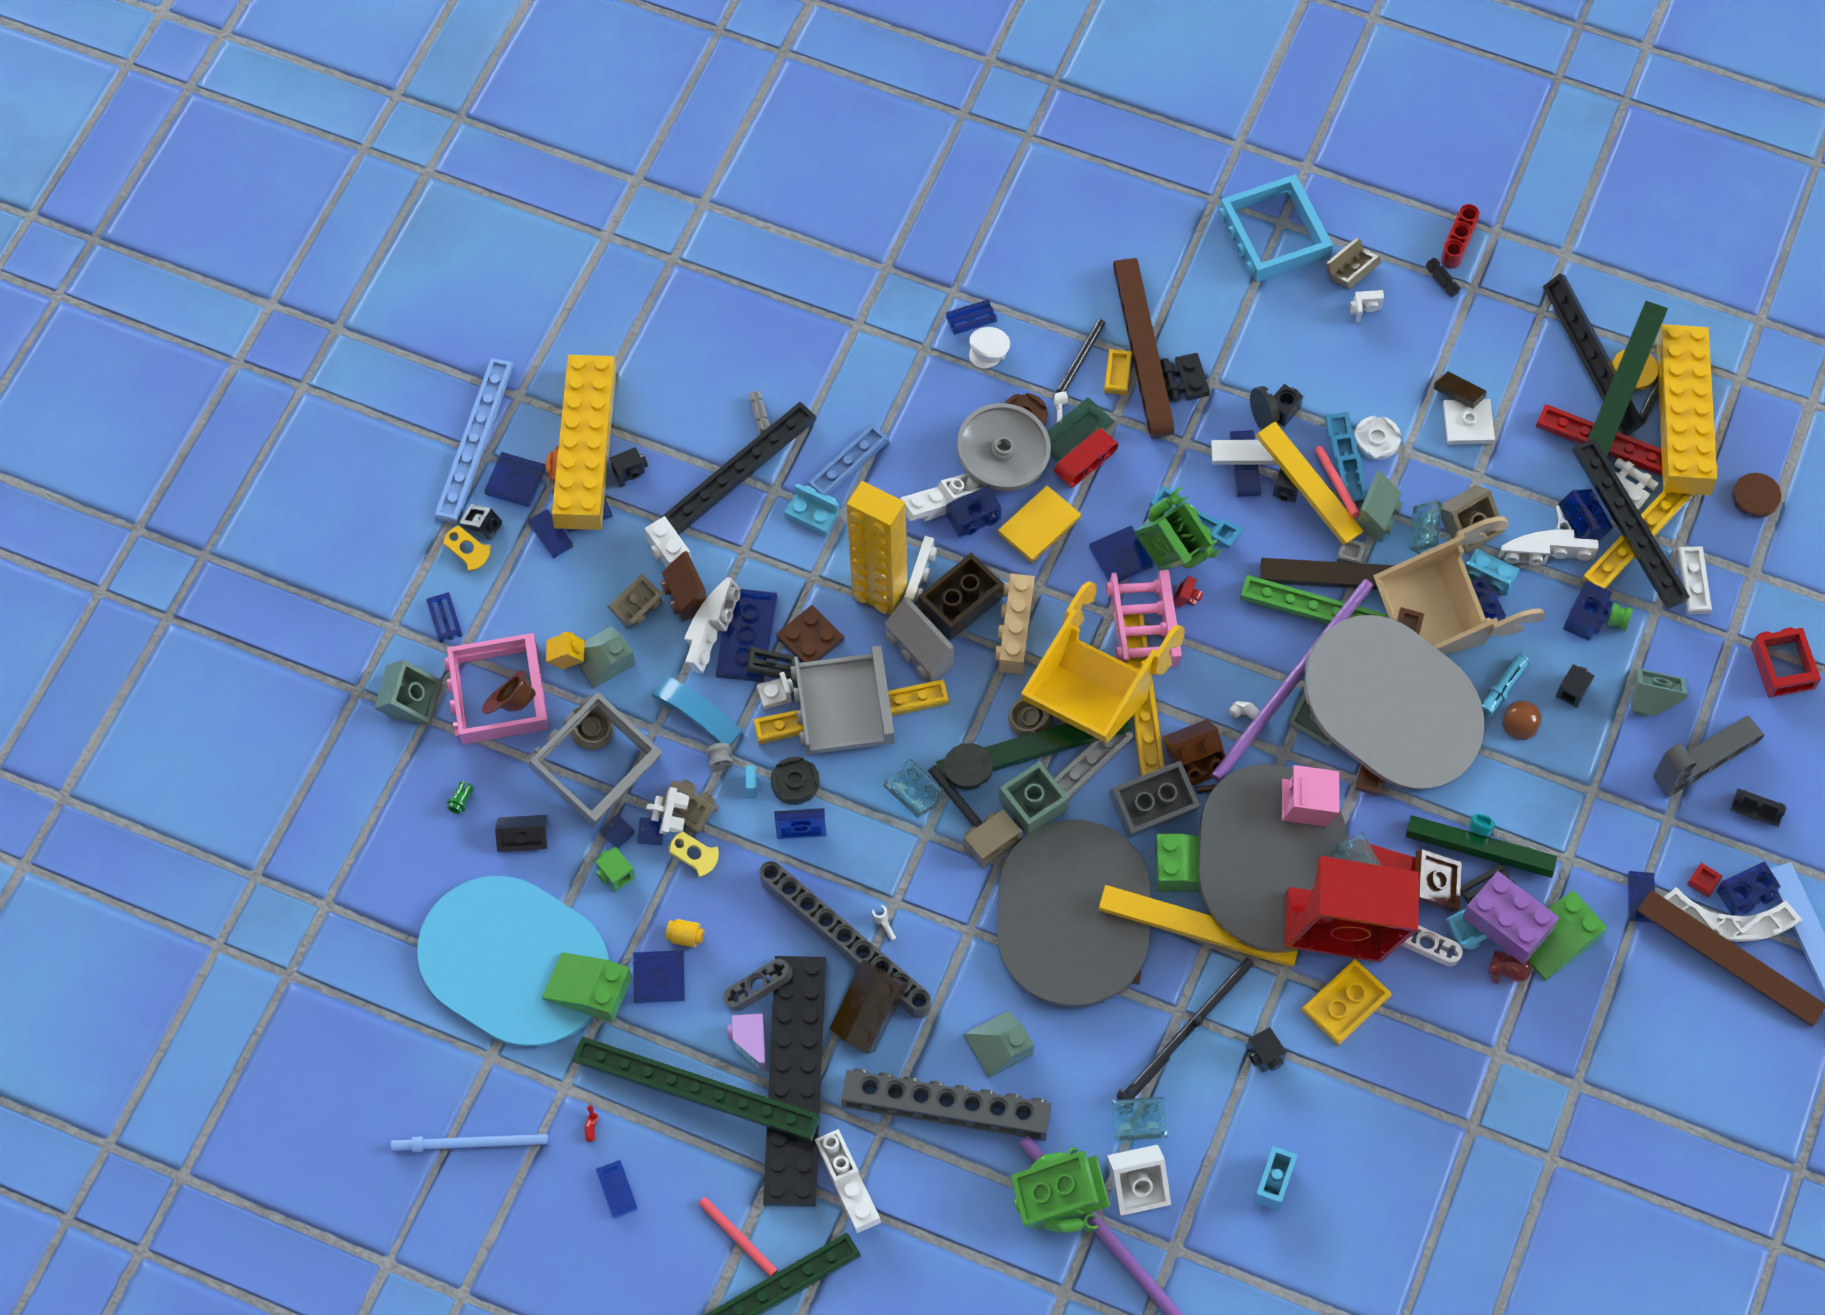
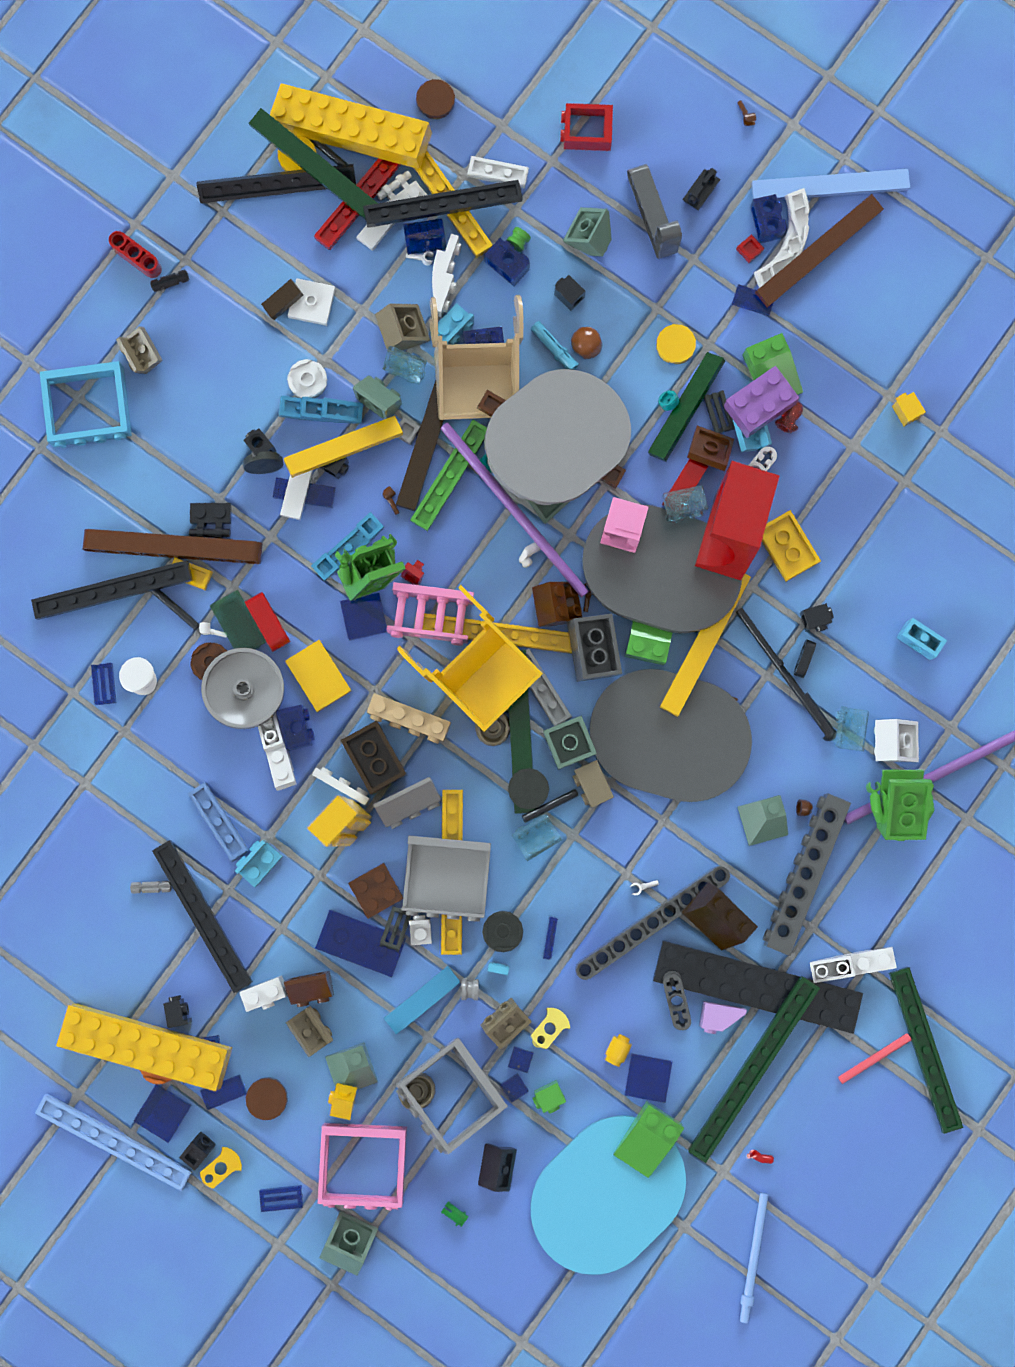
camera: 80 degrees left, 20 degrees up
(511, 696) = (379, 1160): reddish brown piece -> none
(551, 577) = (266, 1098): none -> reddish brown tile
(616, 1189) = (816, 1146): clear blue tile -> none
(673, 800) = (523, 1044): white hips -> none
(710, 618) = (340, 968): white slope -> none
(1026, 1087) = (804, 808): none -> reddish brown hinge
(1077, 299) = (112, 590): none -> black plate
(1211, 1047) = (804, 658): none -> black beam
(1270, 547) = (388, 493): none -> reddish brown hand
(1337, 482) = (344, 423): coral bar -> none
(1366, 301) = (178, 350): white bracket -> none
(1554, 819) = (676, 344): none -> yellow tile
(1565, 1106) = (908, 408): none -> yellow brick
(1568, 466) = (372, 236): none -> white tile

